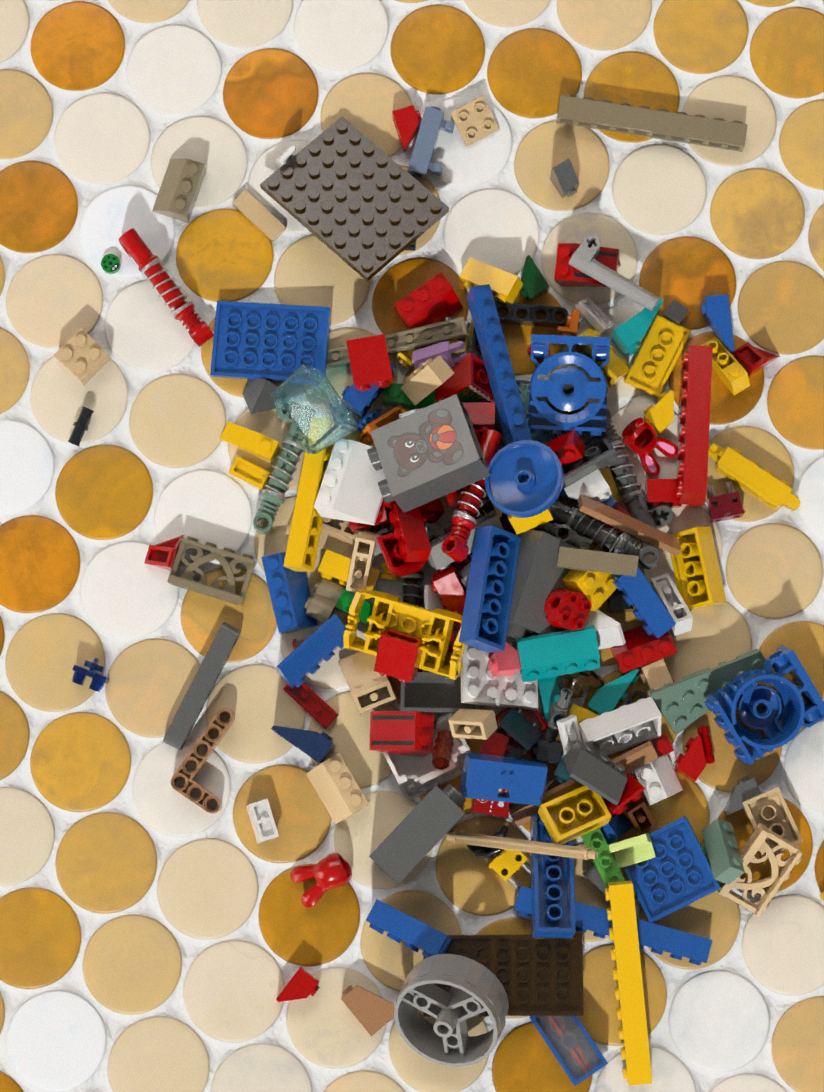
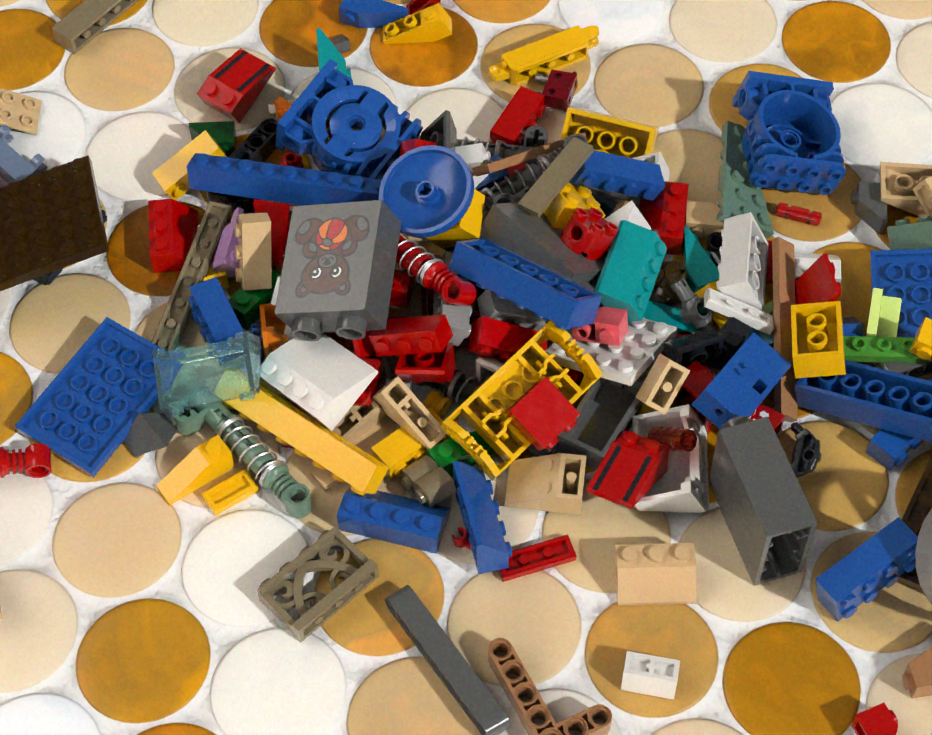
camera: 60 degrees left, 25 degrees down
(80, 426) = (48, 641): black pin -> none
(163, 554) = (264, 626): red slope -> none
(309, 742) = (584, 574): dark blue slope -> none
(329, 873) = (754, 629): red piece -> none
(369, 362) = (196, 291): red brick -> none
(507, 861) = (836, 445): yellow piece -> none
(522, 845) = (834, 393): tan piece -> none
(564, 179) = (136, 63): dark grey slope -> none
(584, 261) = (232, 69): light grey axle -> none
(596, 771) = (780, 292): dark grey slope -> none
(640, 817) = (853, 296): reddish brown slope -> none
(642, 439) = (435, 107): red piece -> none
(657, 356) = (372, 72): yellow tile -> none
(662, 413) = (430, 96): yellow slope -> none
(693, 760) = (809, 228): red slope -> none
(694, 425) = (464, 63): red brick -> none

